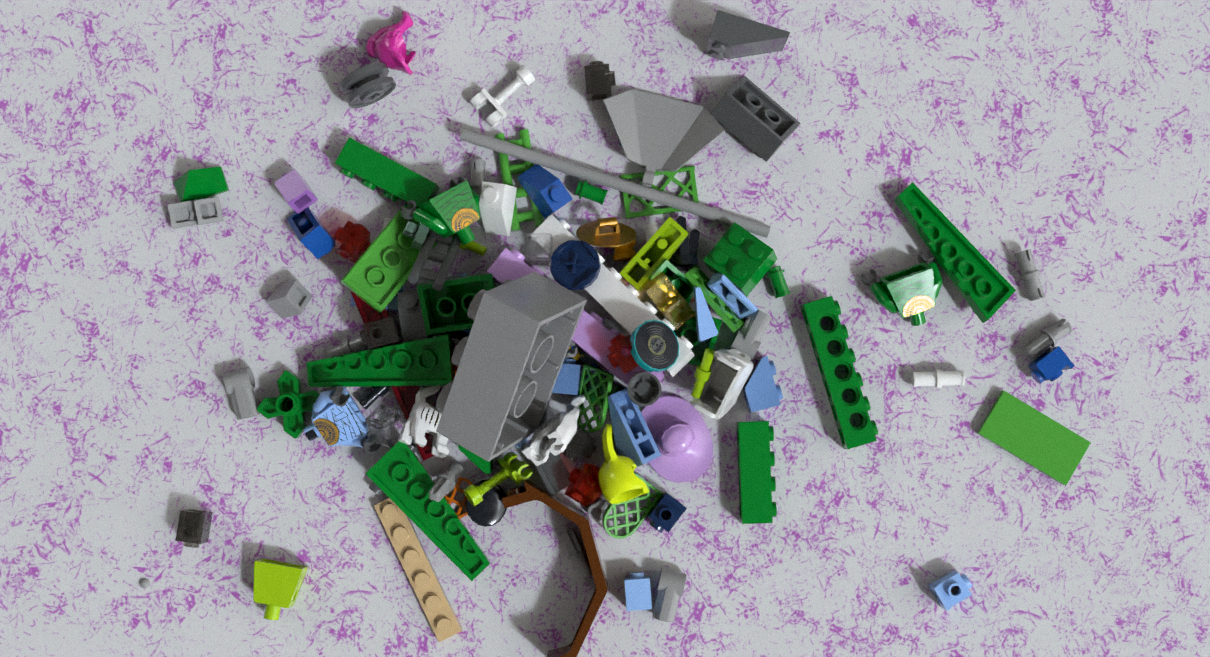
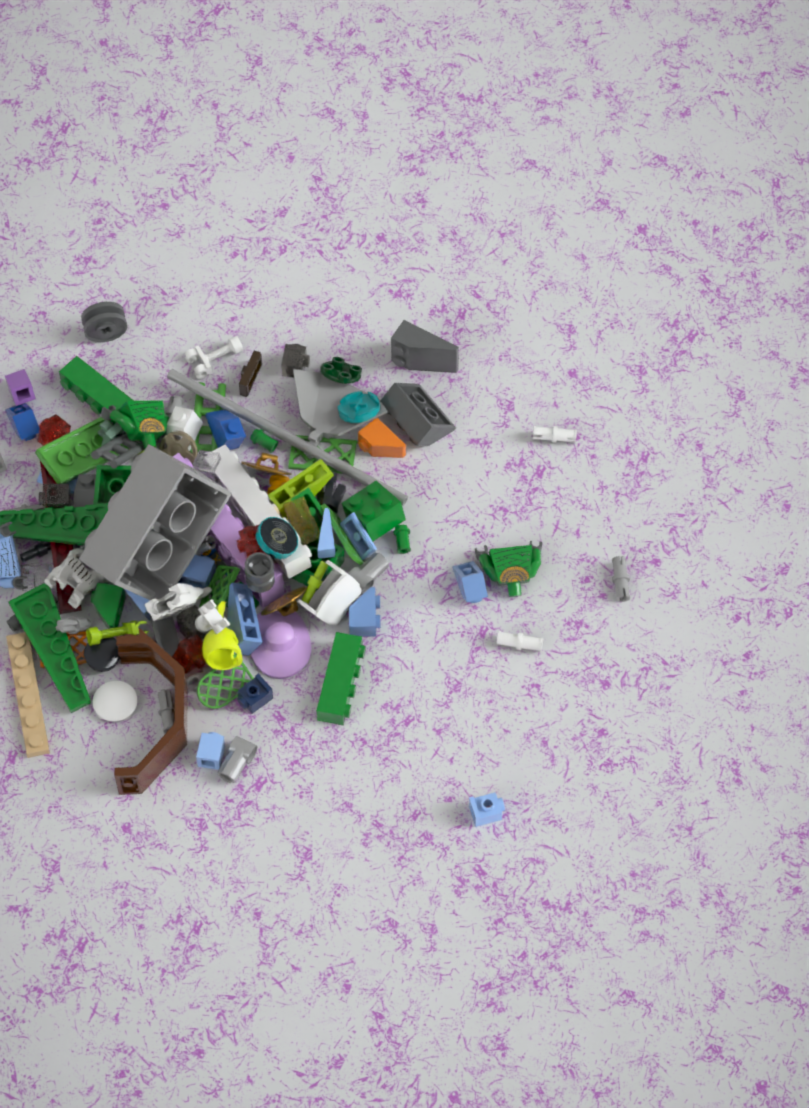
camera: 10 degrees right, 25 degrees down
(389, 46) = (133, 300): dark pink piece -> none
(499, 234) = (179, 446): none -> dark tan wheel
(516, 554) = (115, 701): none -> white dish
(551, 110) = (249, 373): none -> dark brown plate
(575, 265) = (235, 478): dark blue tile -> none
(594, 450) = (210, 619): none -> white bar
(655, 84) = (340, 371): none -> dark green dish
(674, 397) = (288, 598): none -> pearl gold shield
(690, 130) = (358, 407): none -> teal tile
(722, 163) = (380, 441): none -> orange slope
(834, 387) = (434, 566): green brick -> none
(866, 317) = (470, 582): none -> medium blue slope
(914, 108) = (554, 434): none -> white pin
(966, 267) = (566, 560): green wing -> none
(1033, 437) = (592, 707): bright green tile -> none
(1048, 338) = (624, 630): light grey axle -> none
(1050, 365) = (619, 650): blue brick -> none

